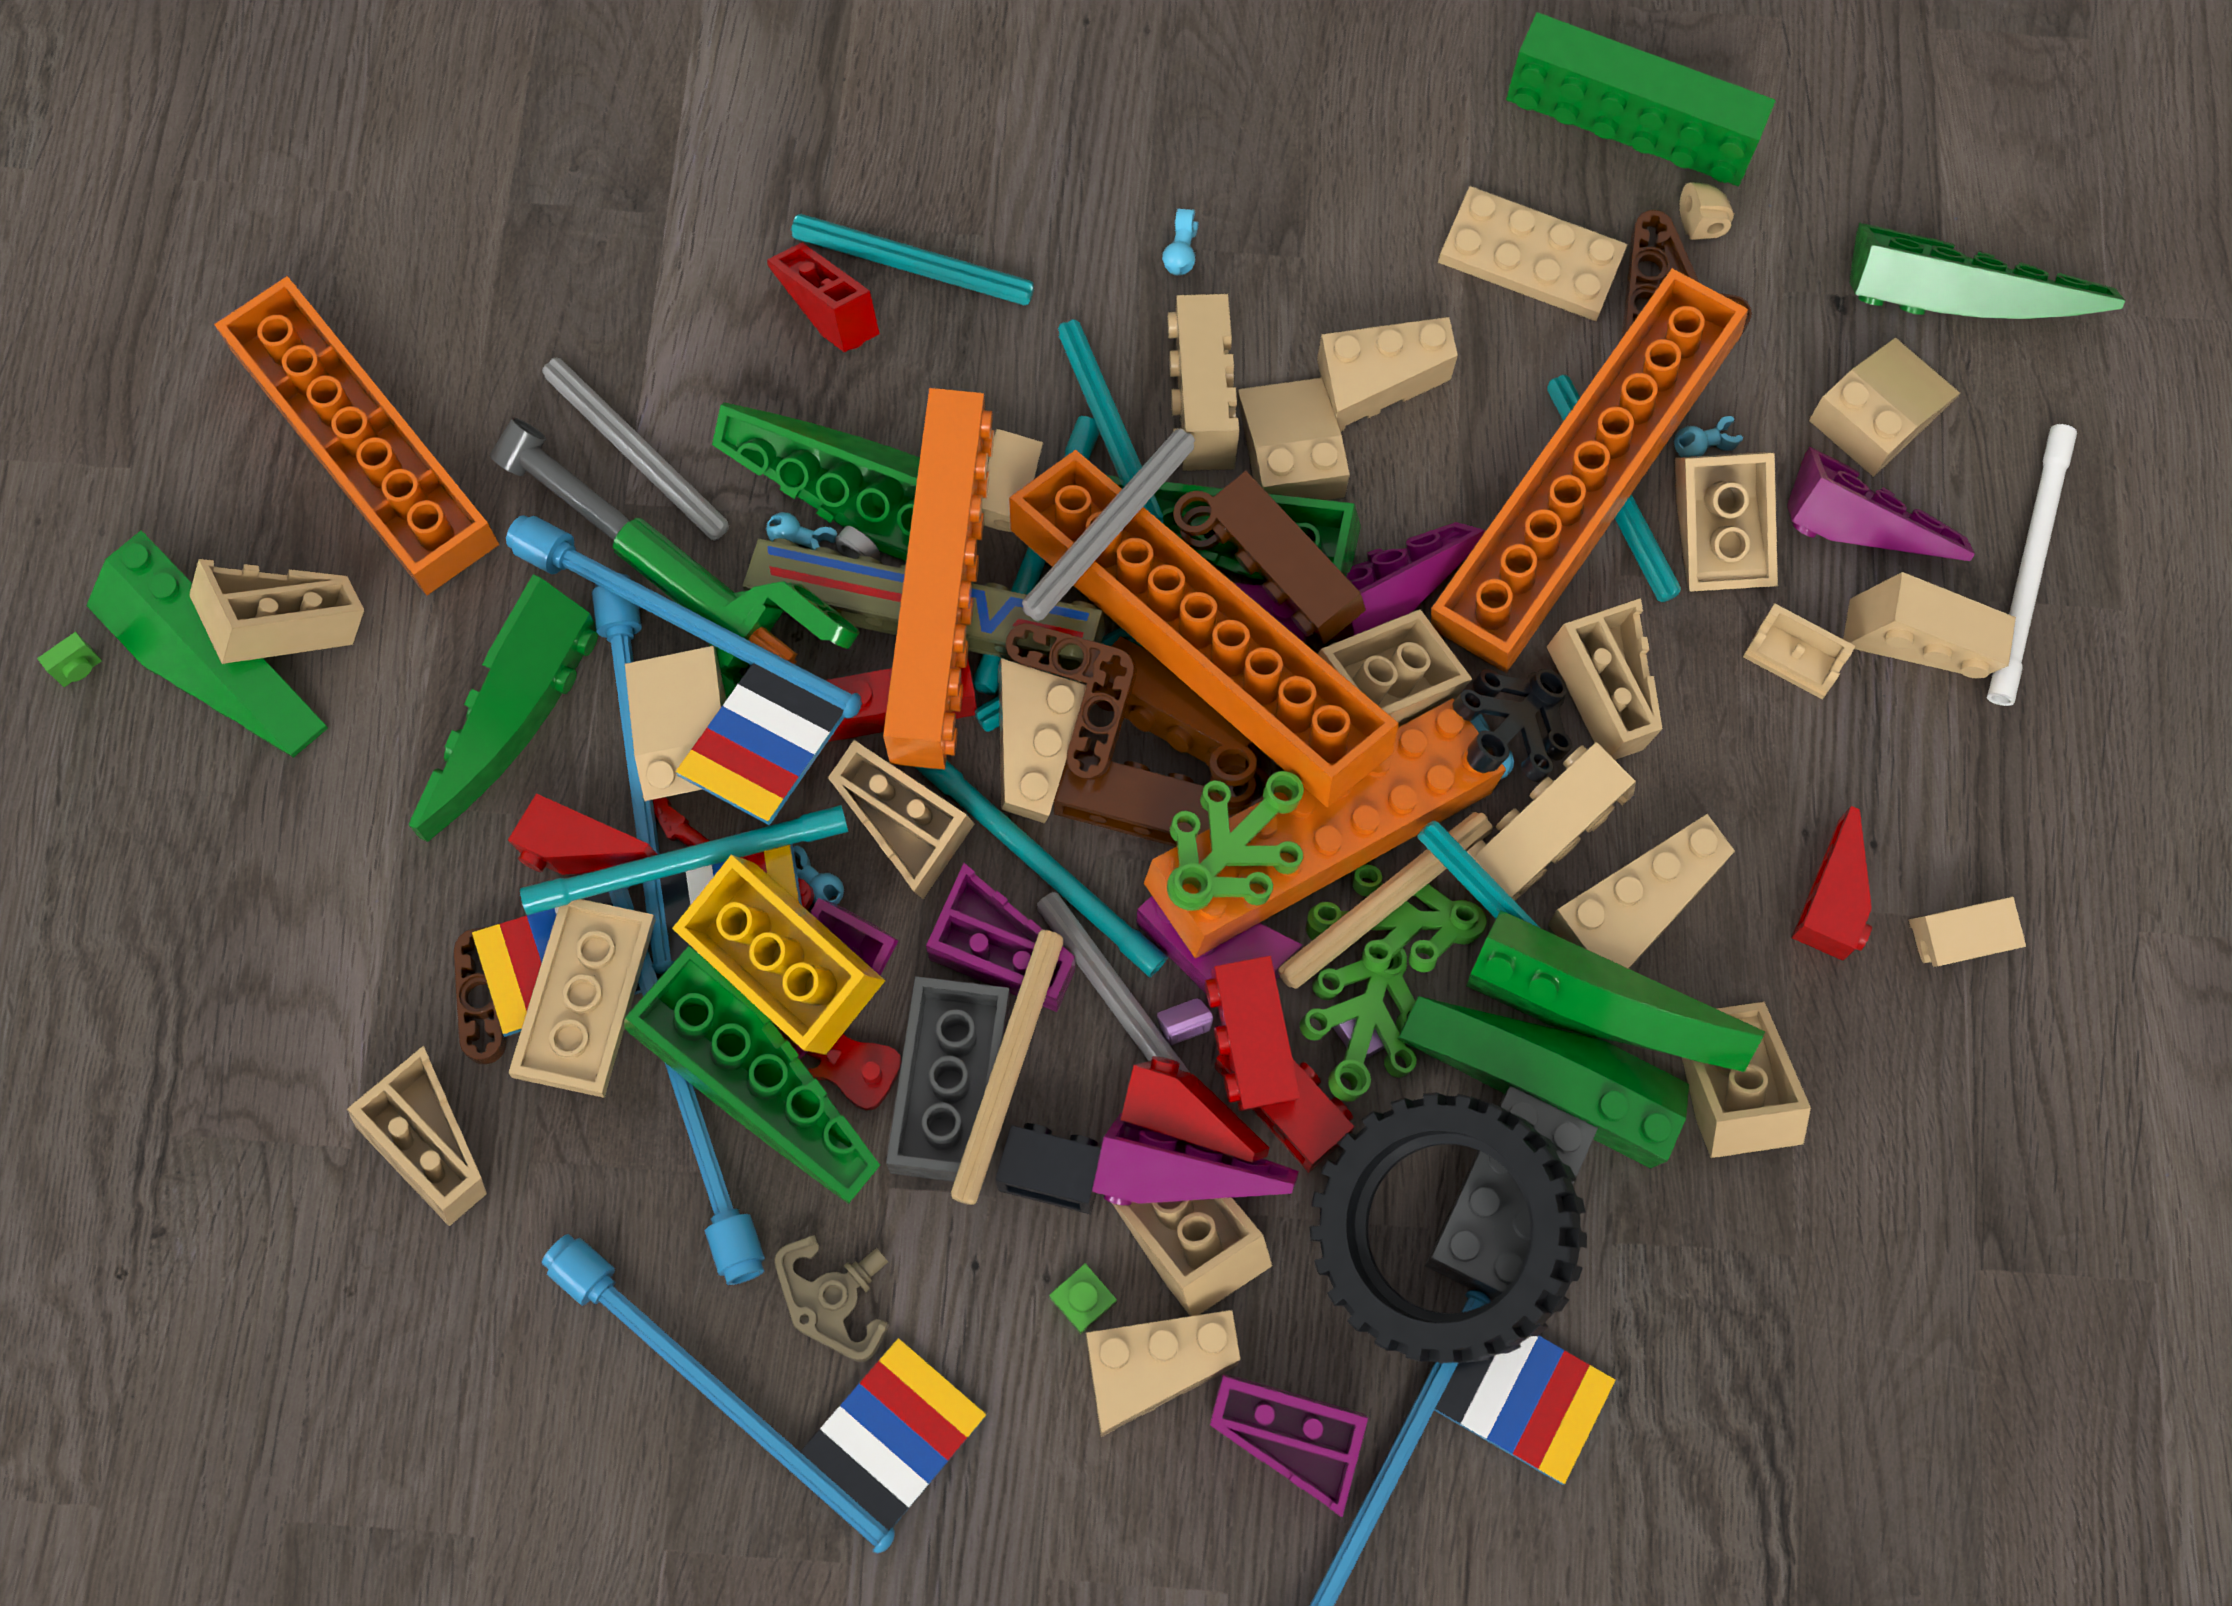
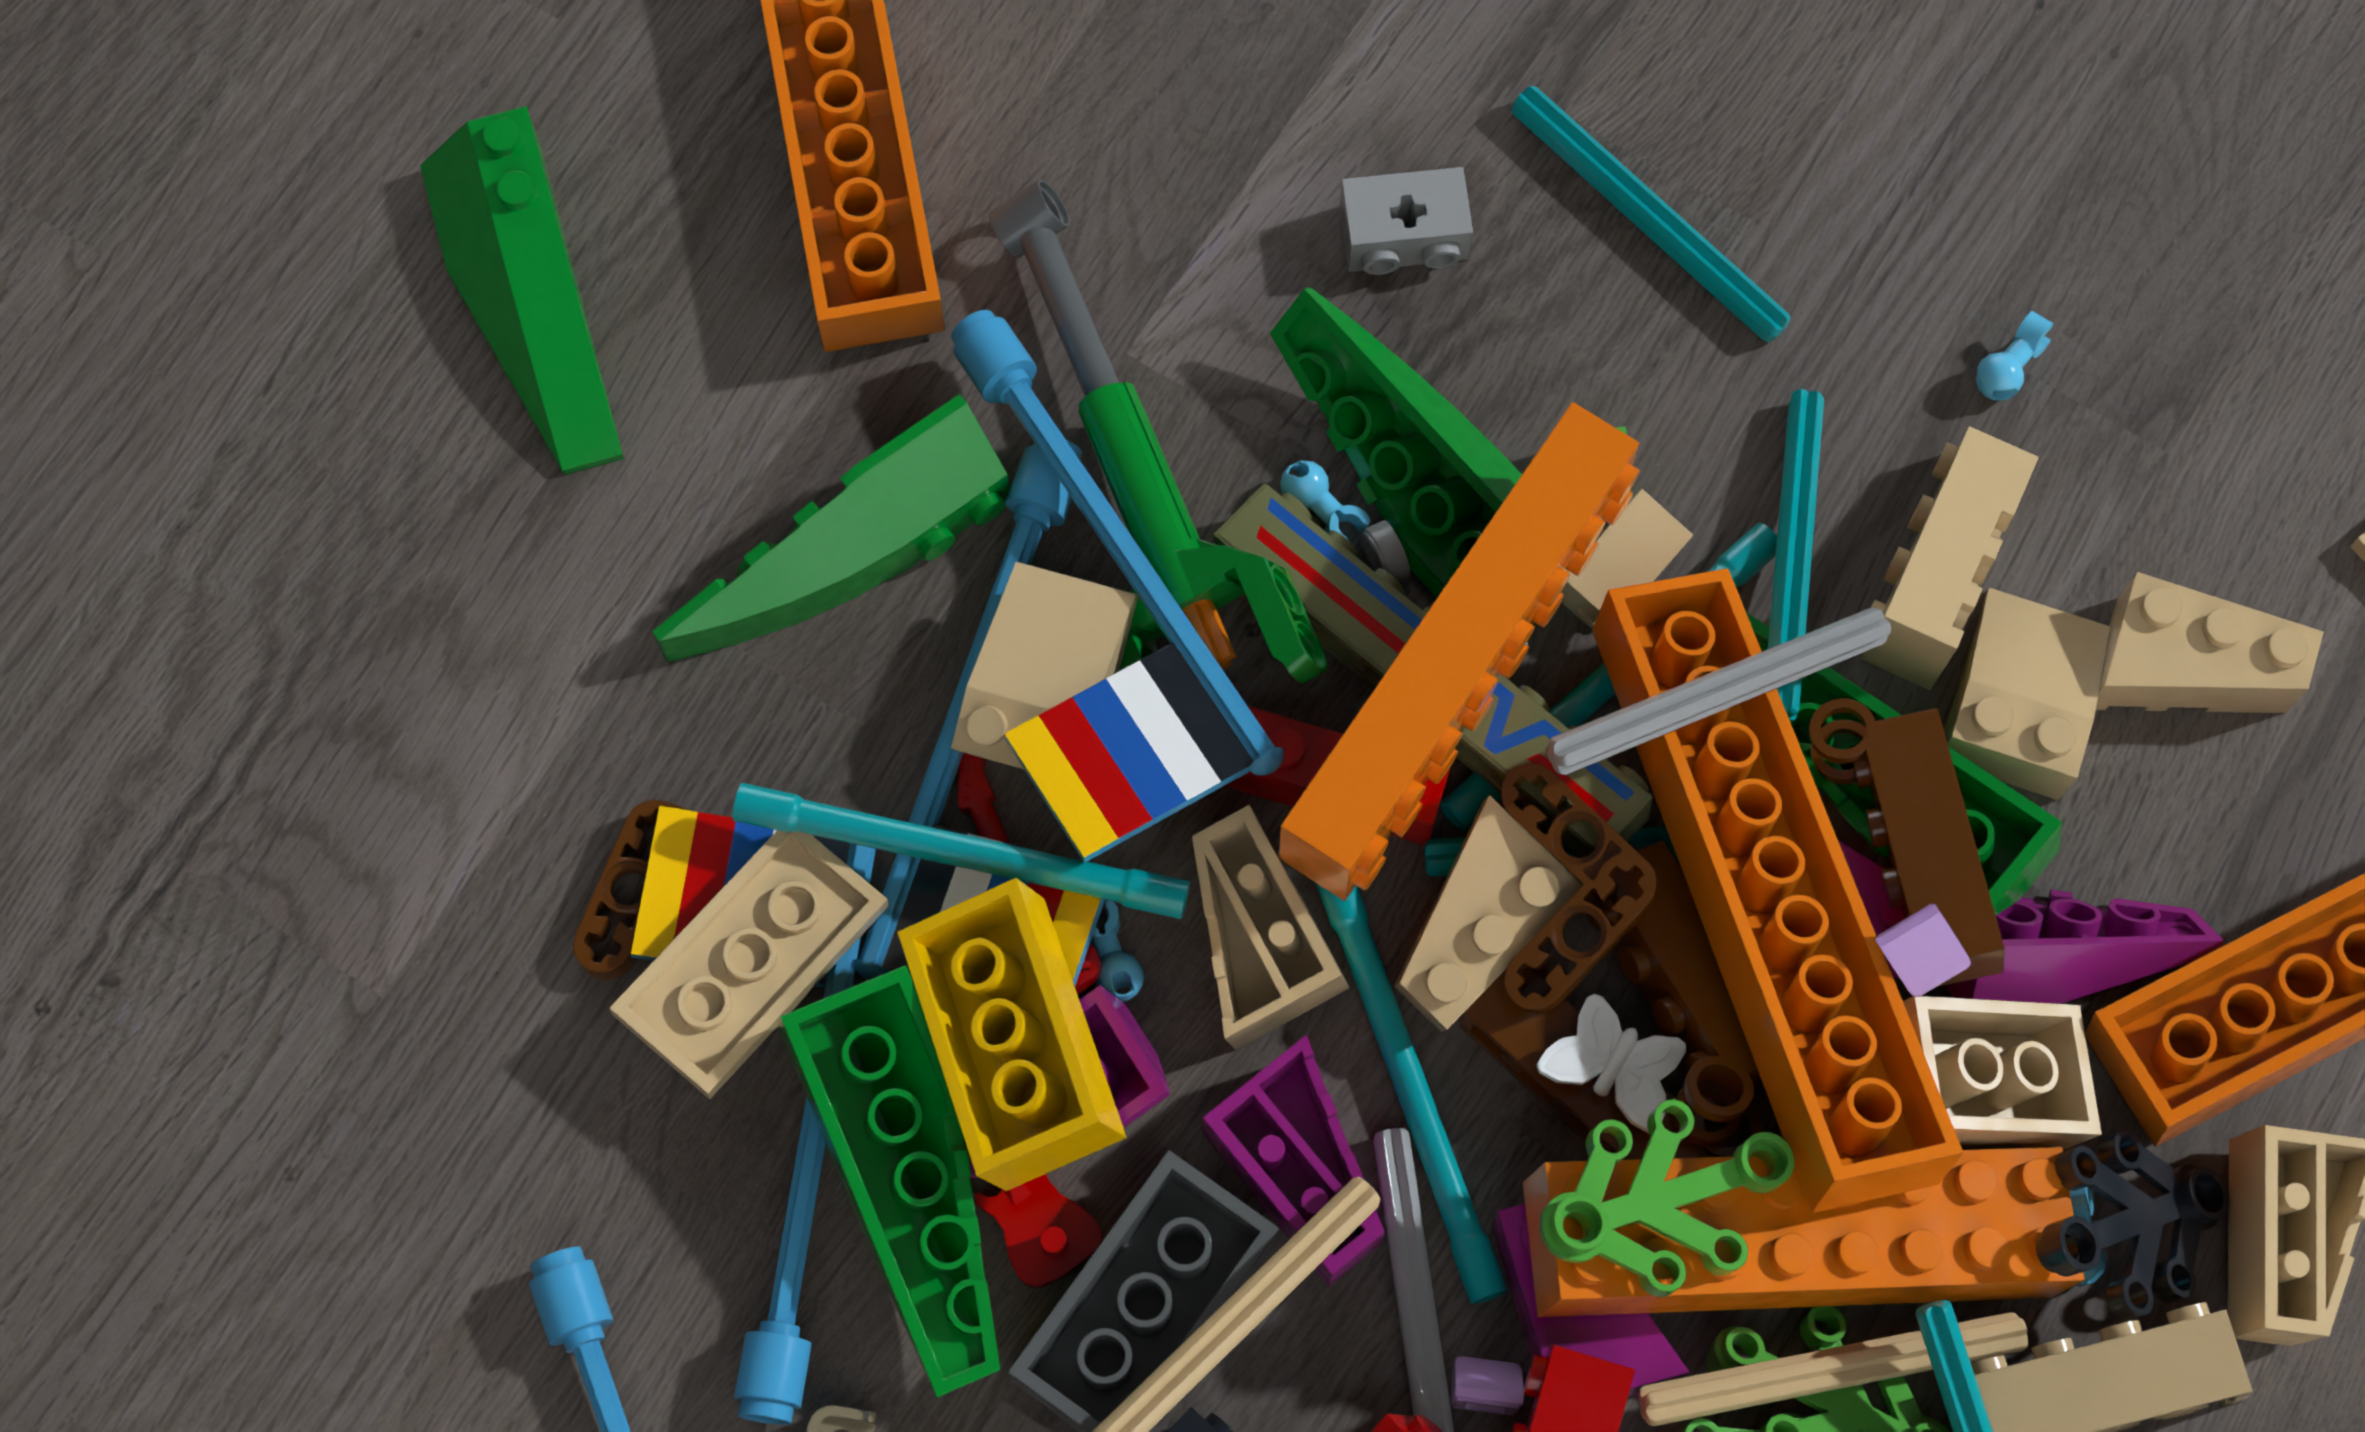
camera: 30 degrees right, 0 degrees up
(69, 660) = (365, 224): bright green plate -> none
(273, 614) = (626, 287): tan wedge -> none
(419, 1136) = (467, 1028): tan wedge -> none
(570, 841) = (837, 754): red slope -> none
(635, 449) = (1174, 292): light grey axle -> none
(741, 333) = (1431, 204): none -> light grey brick
(827, 296) = (1514, 210): red slope -> none
(1161, 779) = (1615, 1056): none -> white piece
(1313, 616) = (1923, 951): none -> lavender slope

